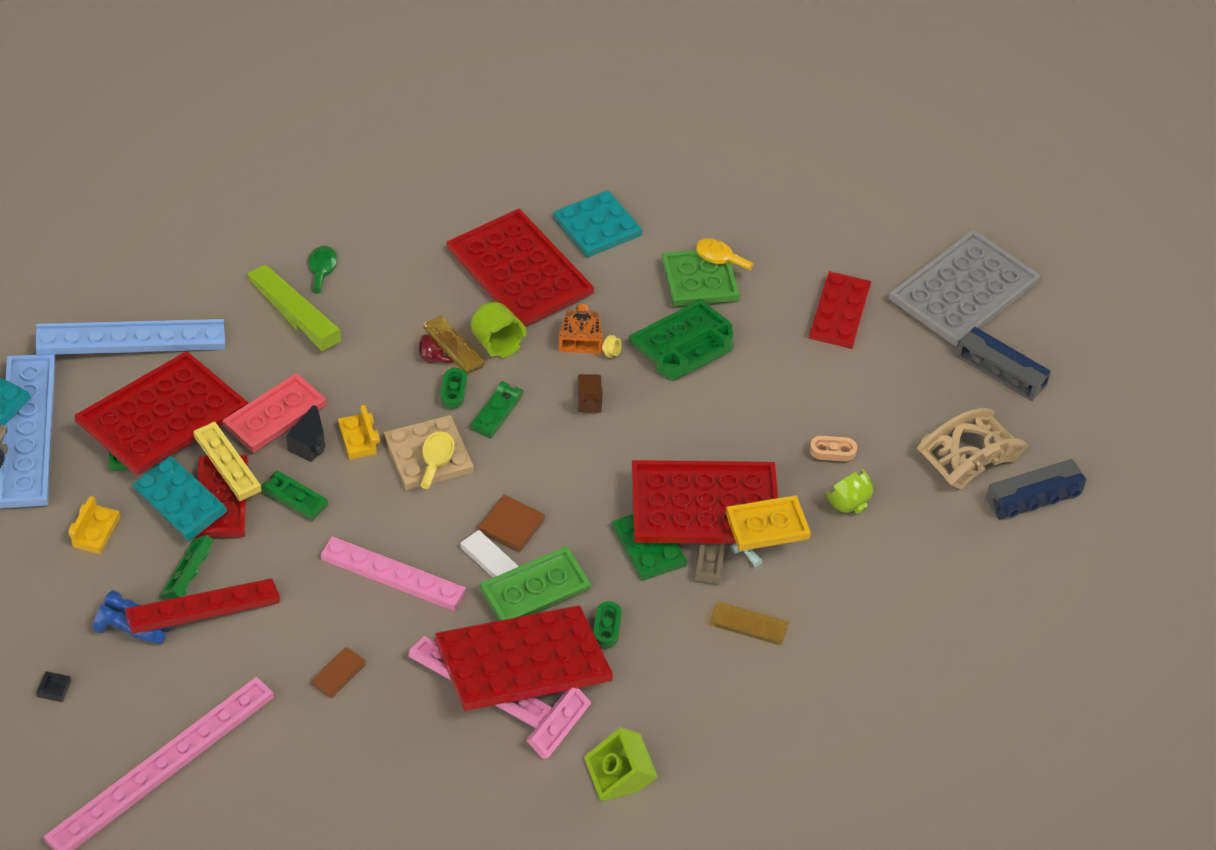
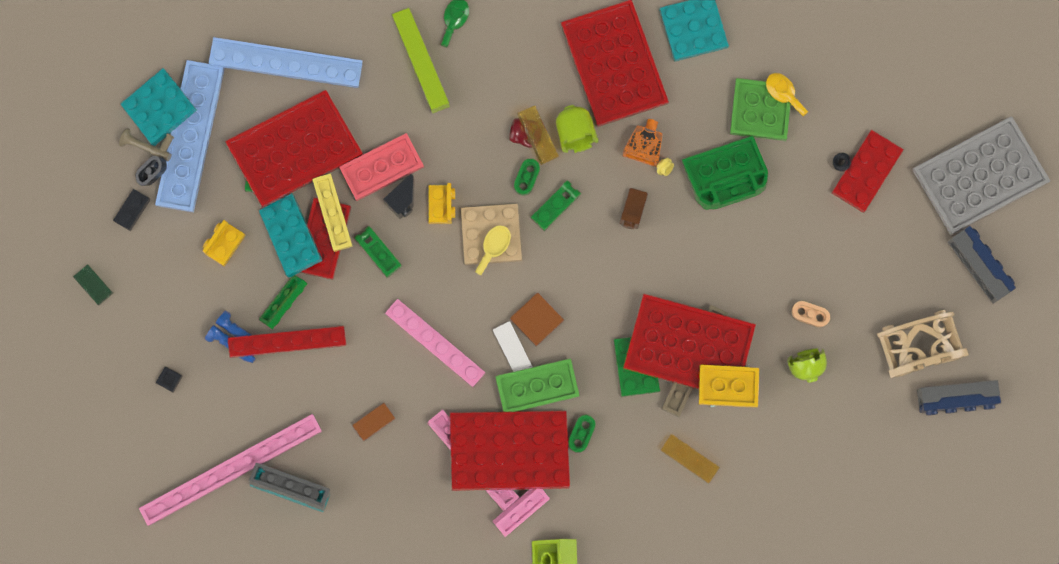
camera: 20 degrees right, 30 degrees up
(247, 761) = (289, 487): none -> dark grey piece
(808, 304) = (838, 159): none -> black plate

